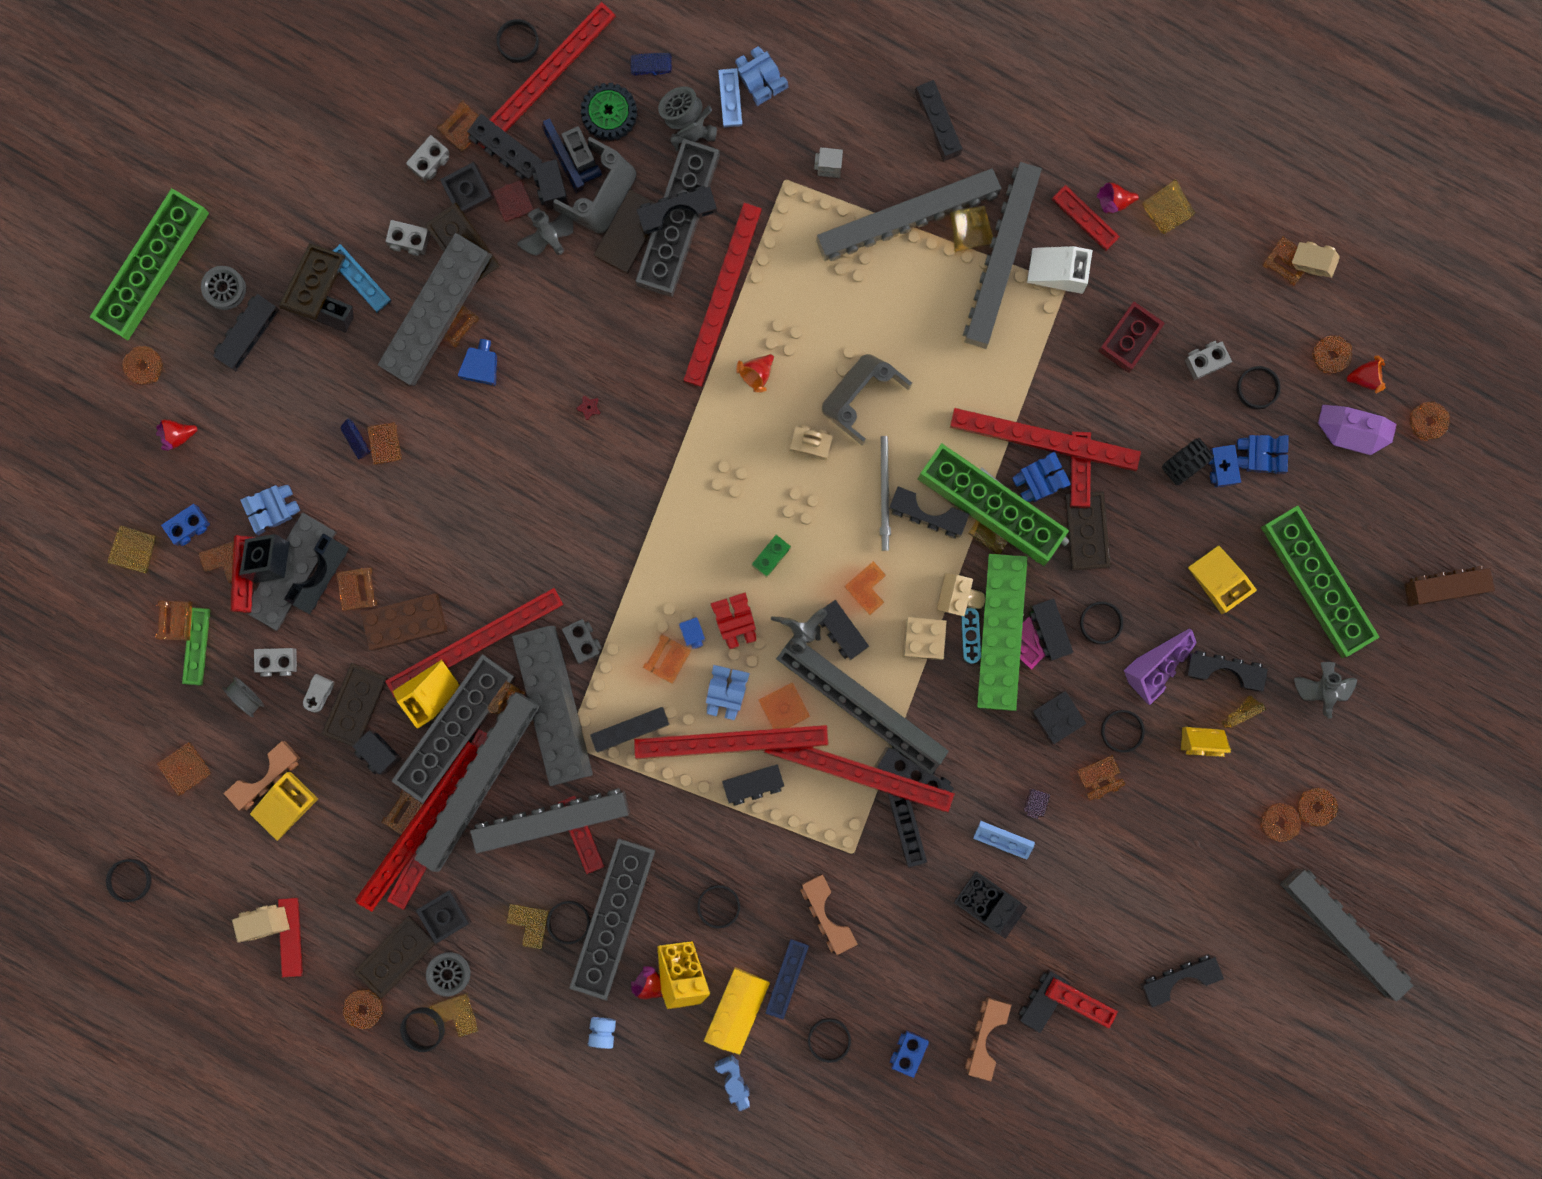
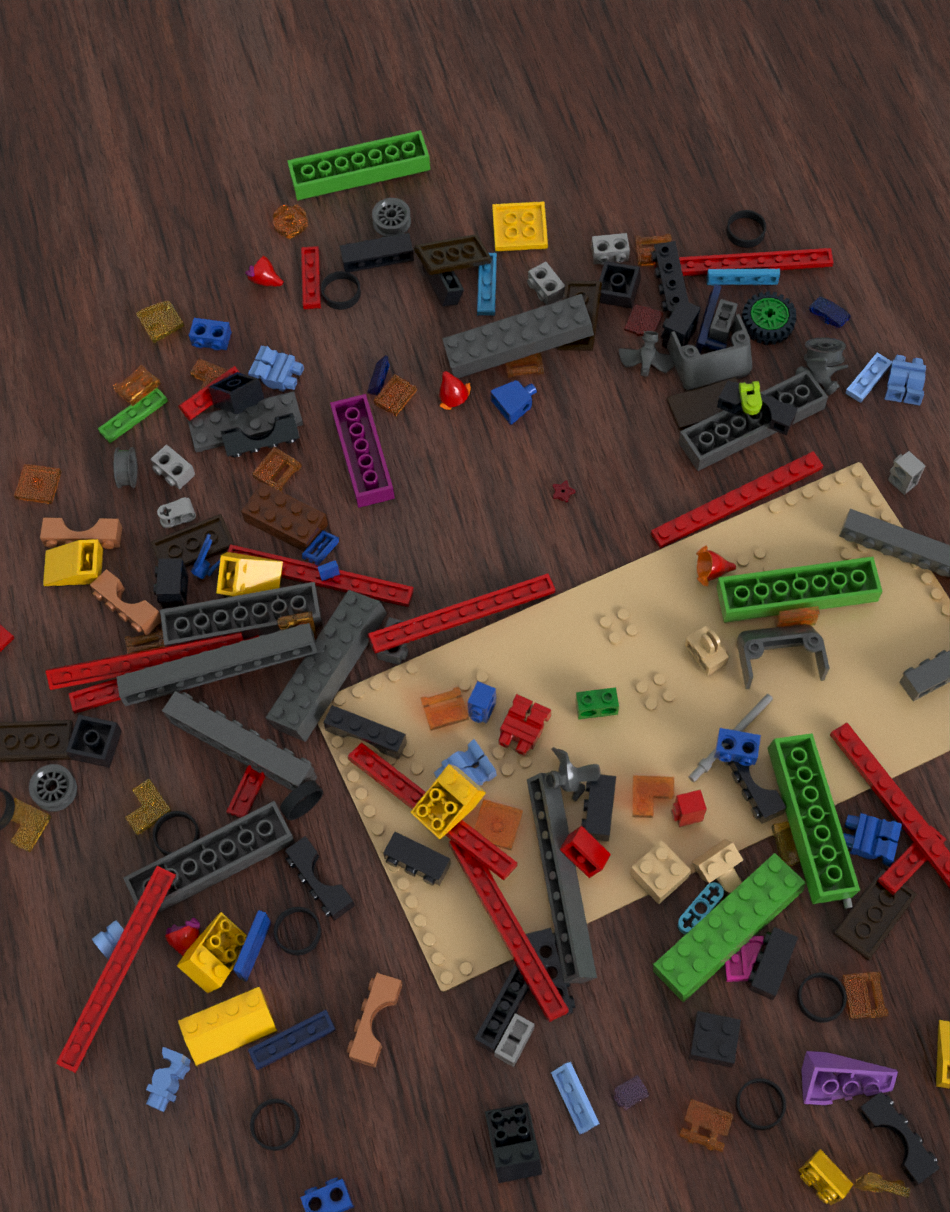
camera: 50 degrees right, 20 degrees down
(212, 400) = (311, 277): none -> red tile
(238, 374) = (341, 275): none -> black tyre
(333, 798) = (140, 615): none -> nougat arch
(335, 202) = (520, 226): none -> yellow plate
(382, 716) = (201, 566): none -> blue plant
(407, 514) = (362, 450): none -> magenta brick
(428, 401) = (452, 391): none -> red hat
(457, 635) = (323, 549): none -> blue tile
(481, 635) = (328, 570): none -> blue tile
(556, 91) = (743, 276): none -> dark azure tile
(611, 577) = (461, 613): none -> red plate
(627, 1047) = (116, 969): none -> red plate
(635, 819) = (292, 808): none -> black tyre
(673, 215) = (750, 403): none -> lime plate
(673, 856) = (334, 898): none -> black arch
(702, 947) = (252, 946): none -> blue tile
(739, 727) = (447, 801): none -> yellow slope
(834, 334) = (797, 588): none -> bright green brick
(856, 353) = (798, 617): none -> clear orange plate
(864, 673) = (585, 851): none -> red brick
(897, 498) = (737, 741): none -> blue brick
(905, 576) = (689, 808): none -> red brick
(932, 841) = (514, 1040): none -> light grey brick
(1123, 599) = (858, 997): none -> clear orange plate

